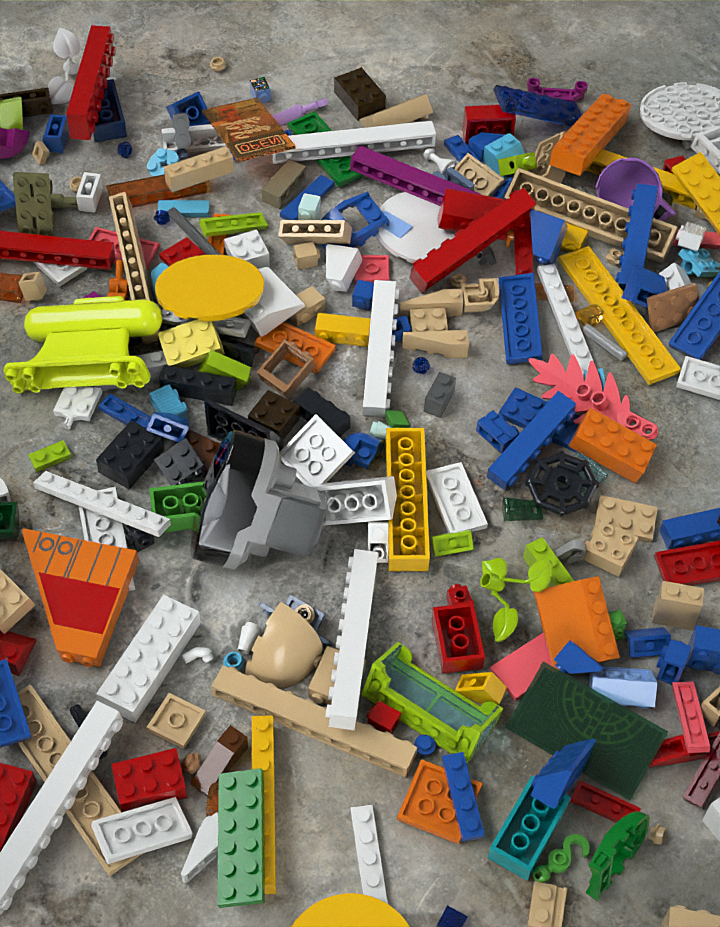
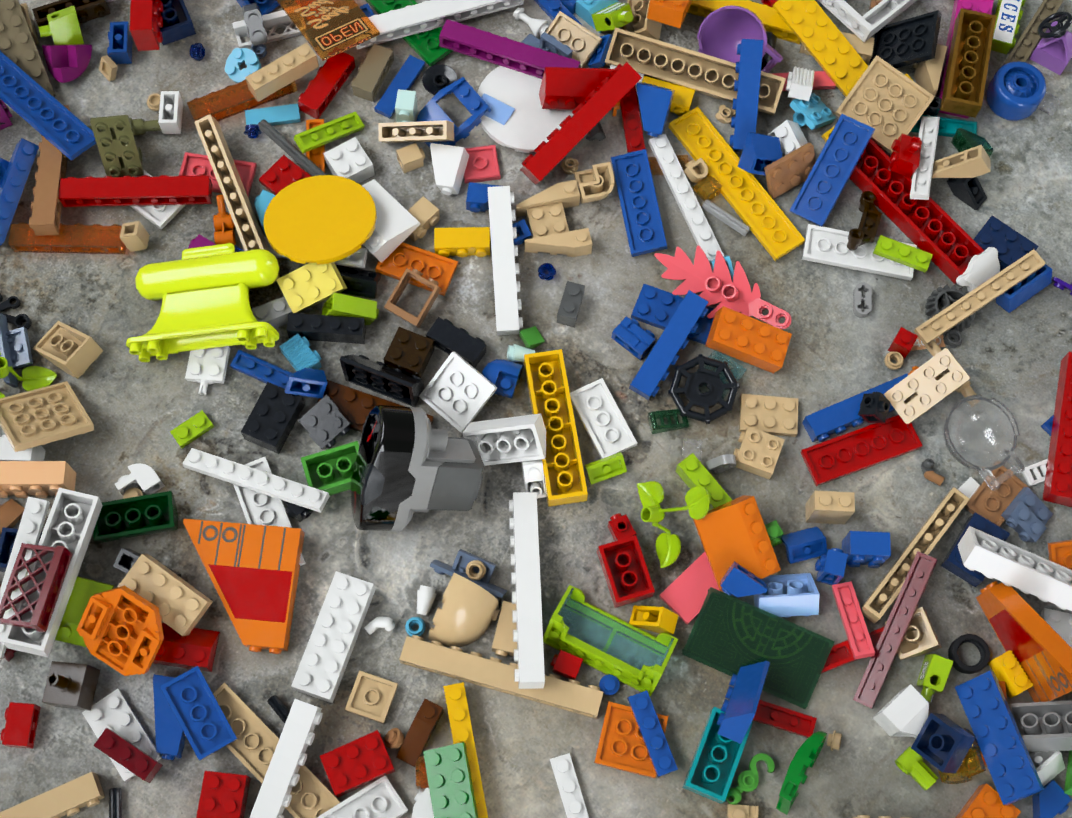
camera: 10 degrees left, 15 degrees up
(239, 187) = (326, 84): none -> red brick
(343, 192) = (437, 74): none -> black dish
(580, 297) = (696, 170): none -> tan plate

